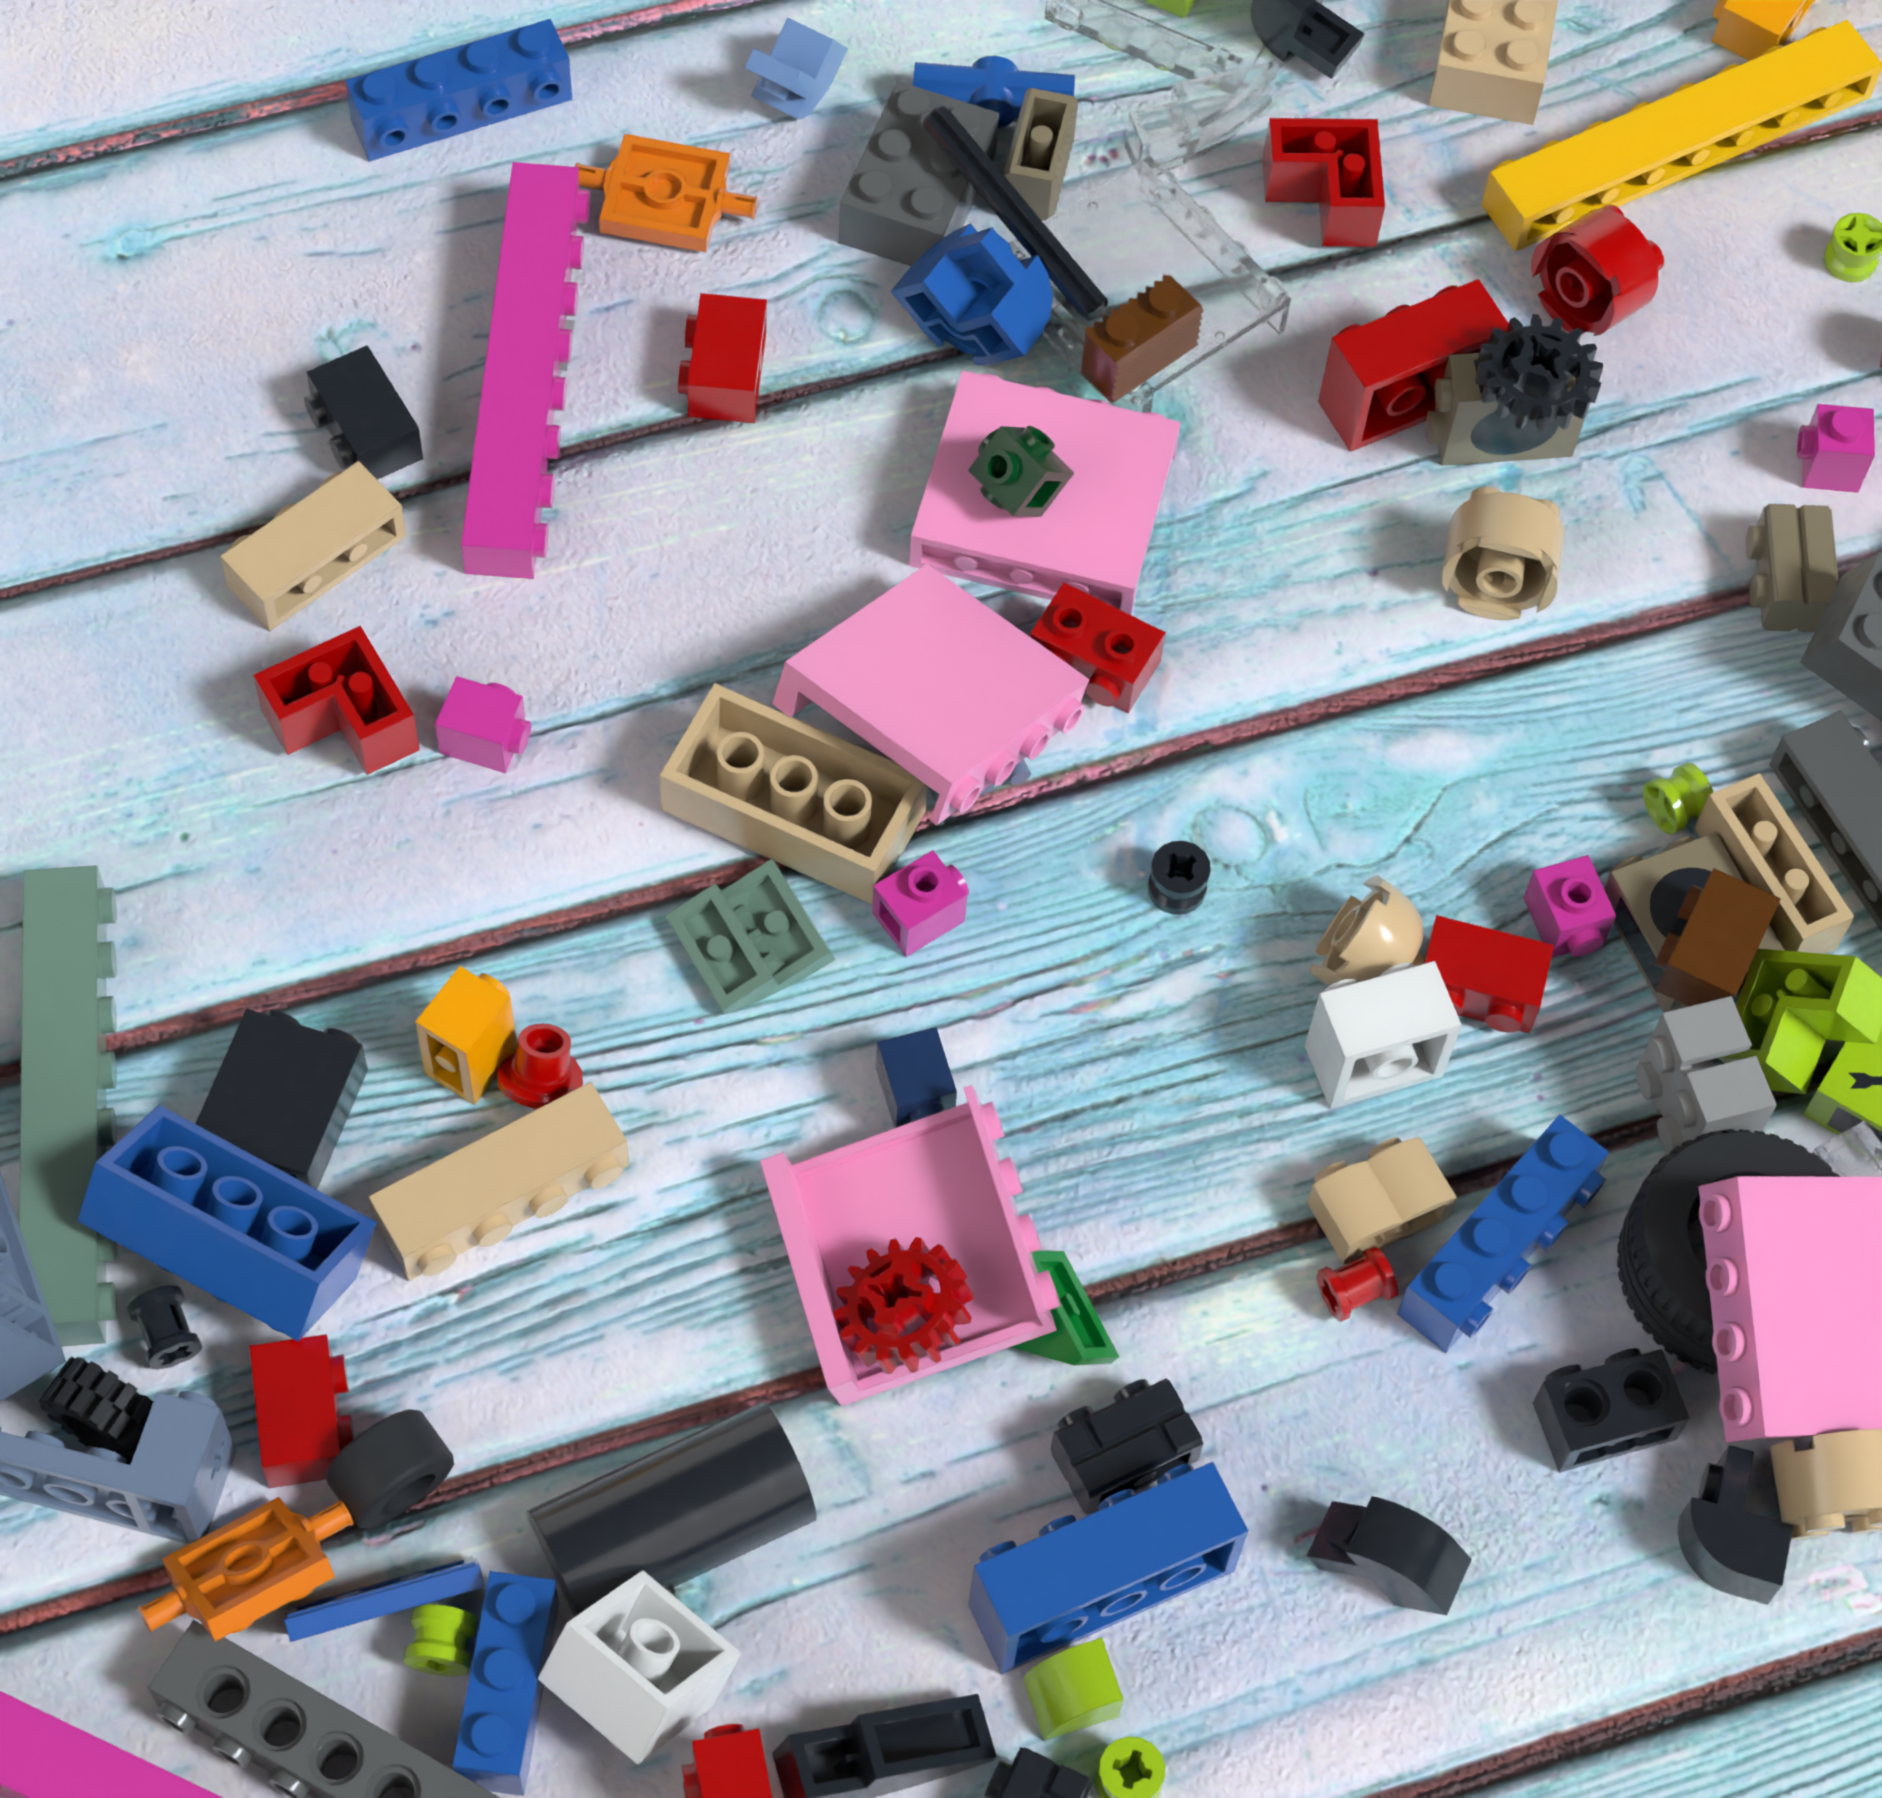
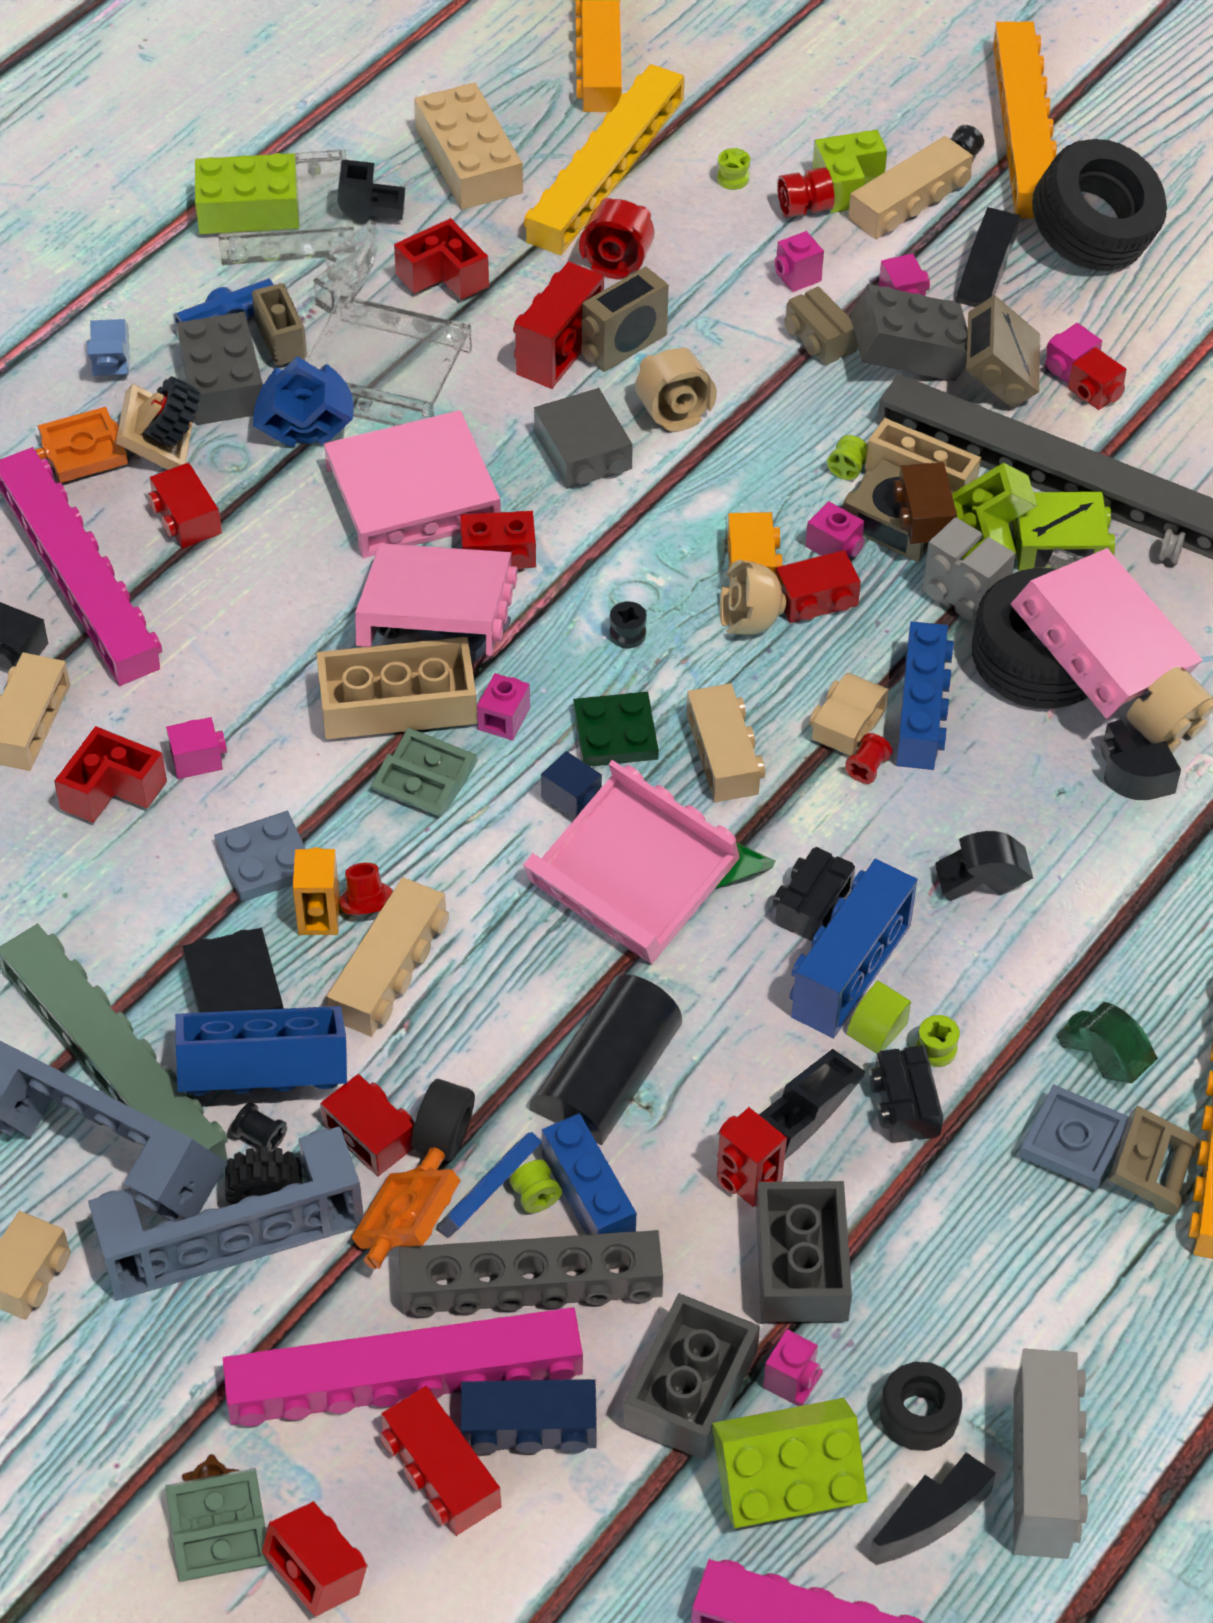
camera: 30 degrees left, 10 degrees down
(459, 923) = (260, 855): none -> sand blue plate
(639, 1666) = (655, 1129): white brick -> none
(768, 220) = (159, 423): none -> plate
(903, 1305) = (655, 886): red gear -> none
(1015, 212) = (290, 349): black axle -> none
(1020, 470) = (411, 468): dark green brick -> none
(1049, 1024) = (615, 729): none -> dark green plate
(1140, 338) = (412, 376): reddish brown brick -> none
(1175, 1138) = (724, 742): none -> tan brick
(1327, 556) = (583, 438): none -> dark grey brick
(1382, 1033) = (792, 634): white brick -> none
(1438, 858) = (753, 539): none -> light orange brick
(1539, 373) = (638, 284): black gear -> none
(1617, 1422) = (1035, 744): black brick -> none

